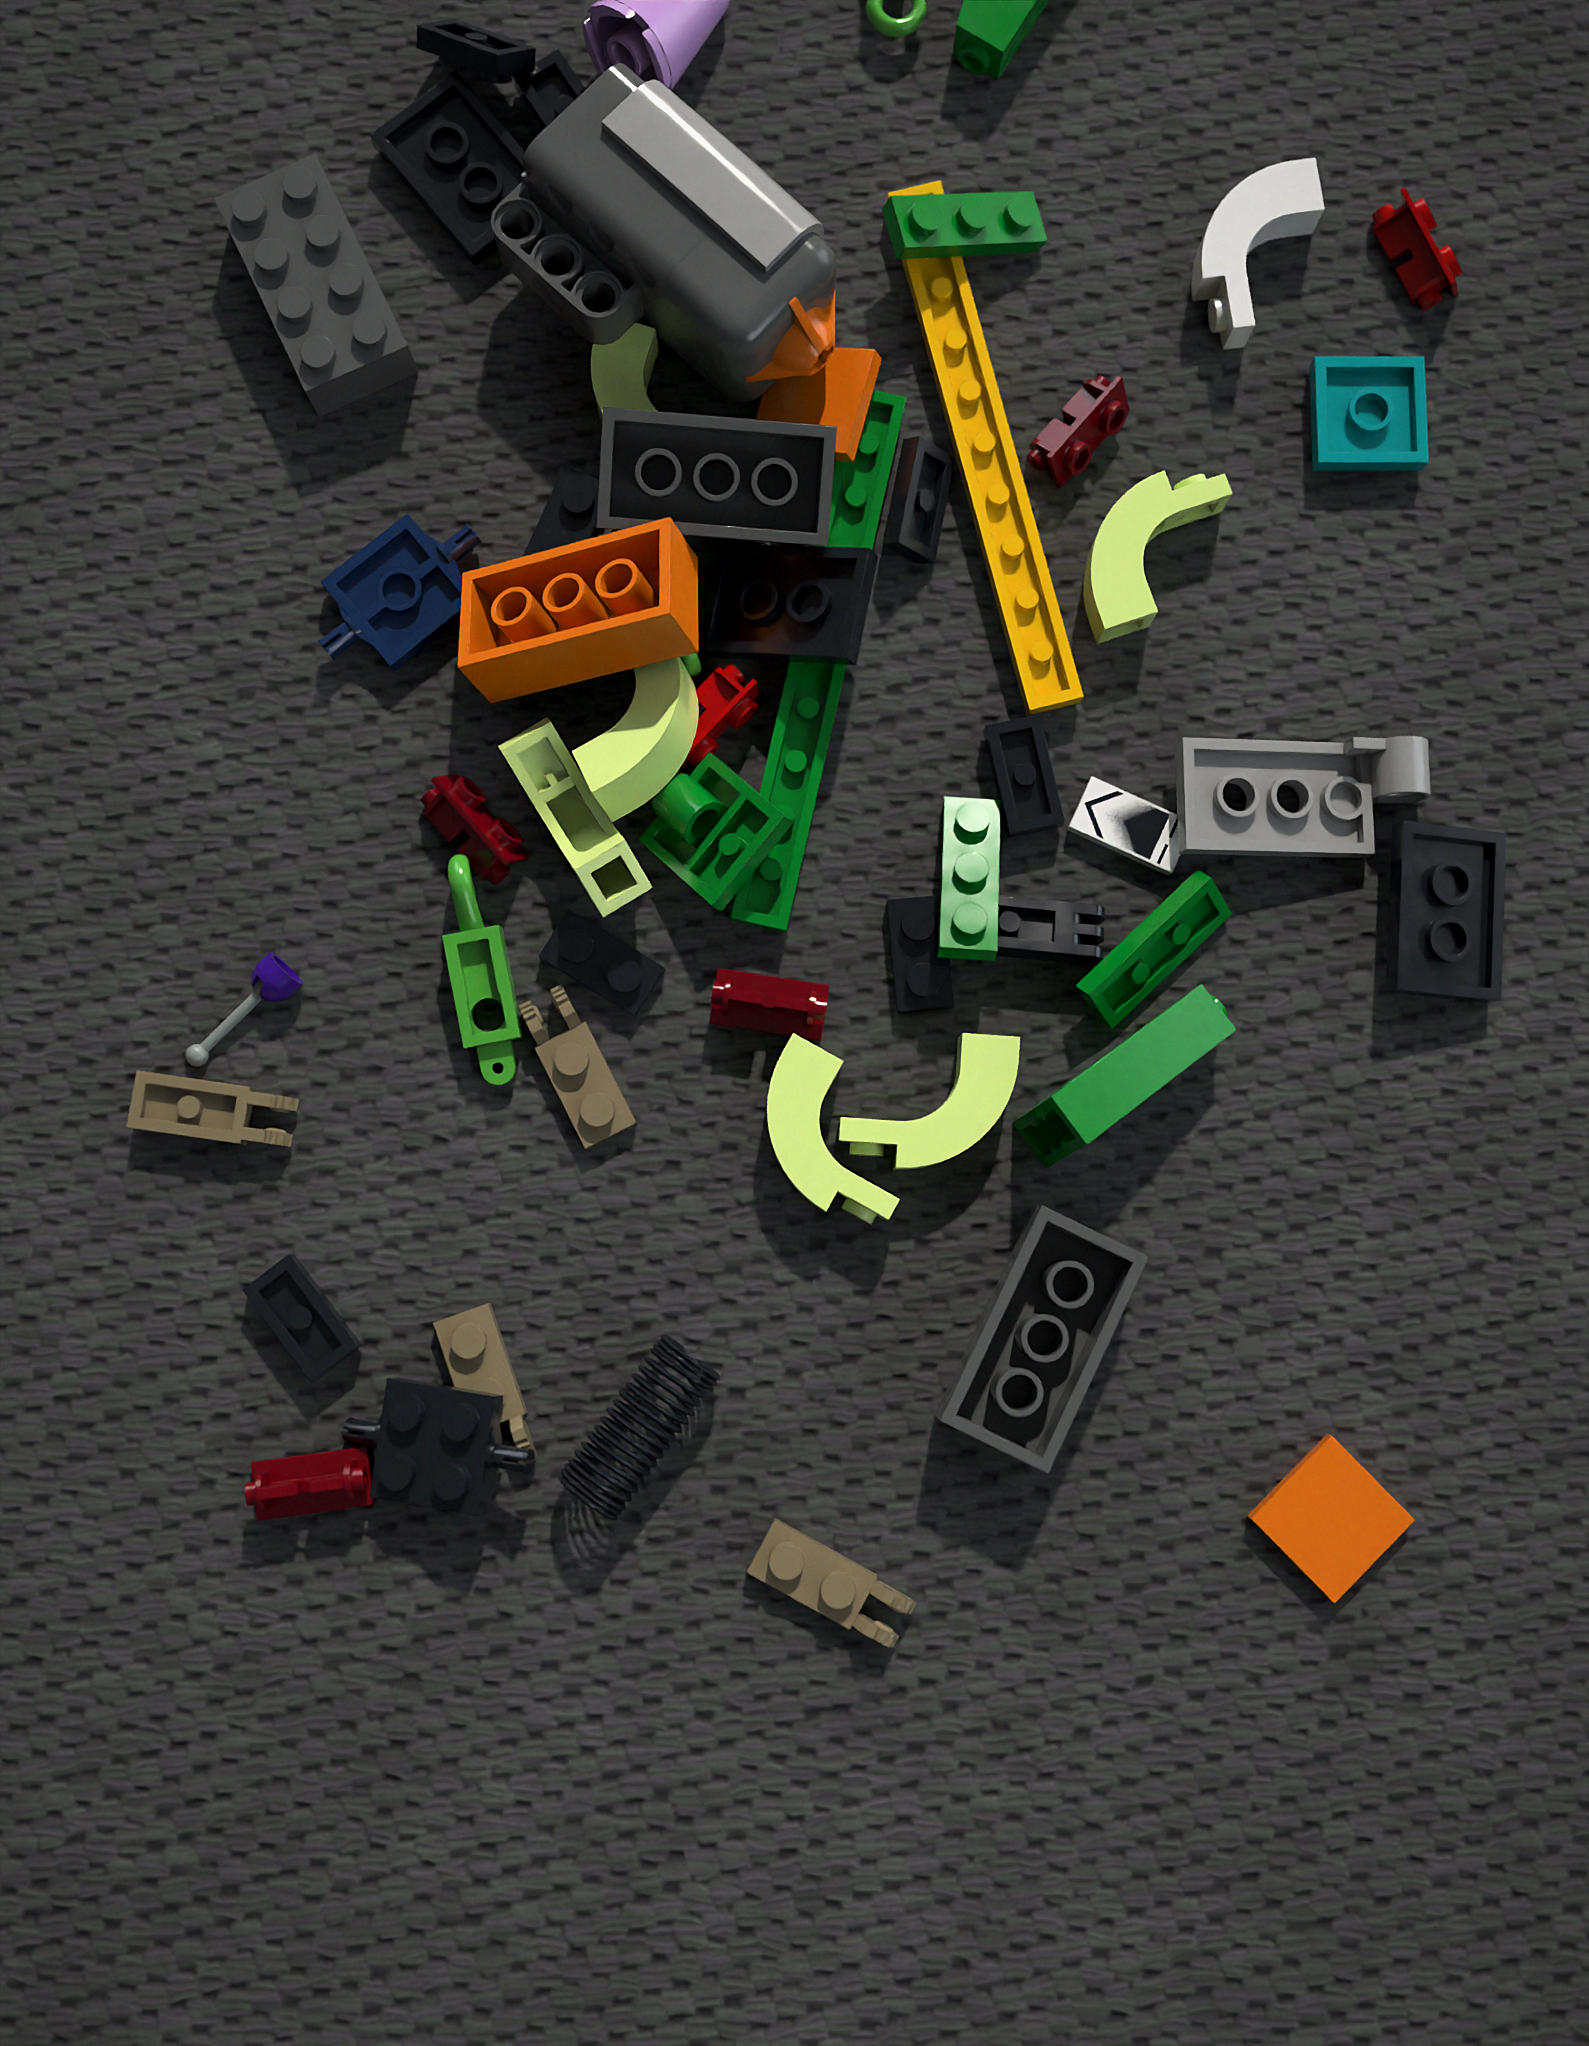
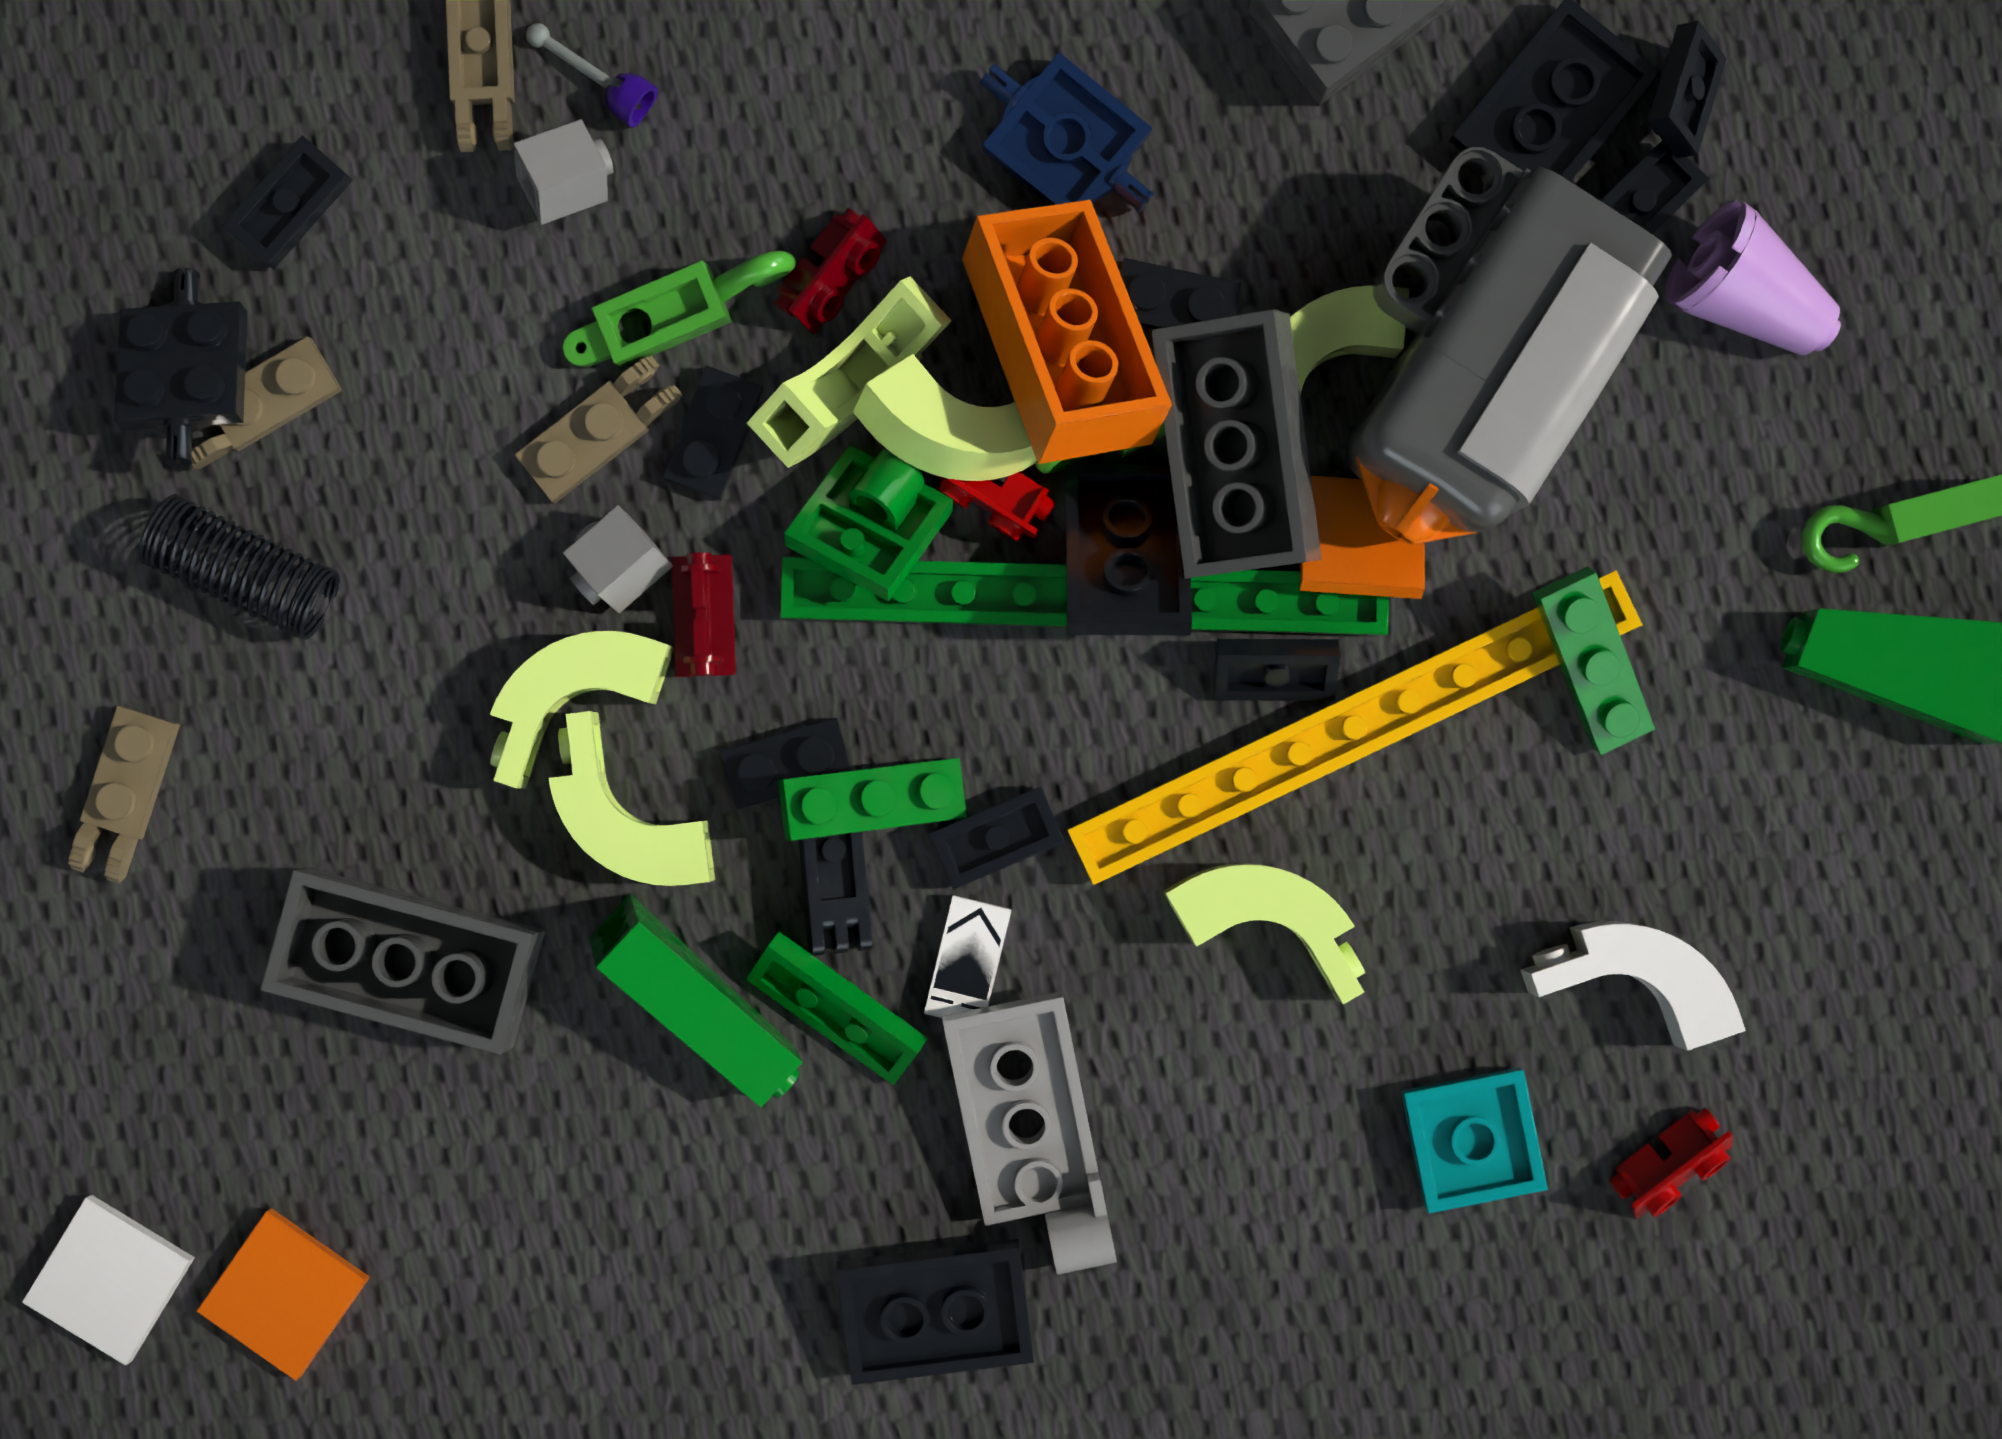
camera: 85 degrees right, 5 degrees up
(310, 1483) = (125, 246): dark red hinge -> none
(330, 1050) = (562, 171): none -> light grey brick
(703, 1071) = (615, 560): none -> light grey brick
(1096, 412) = (1417, 845): dark red hinge -> none
(1290, 1685) = (108, 1280): none -> white tile

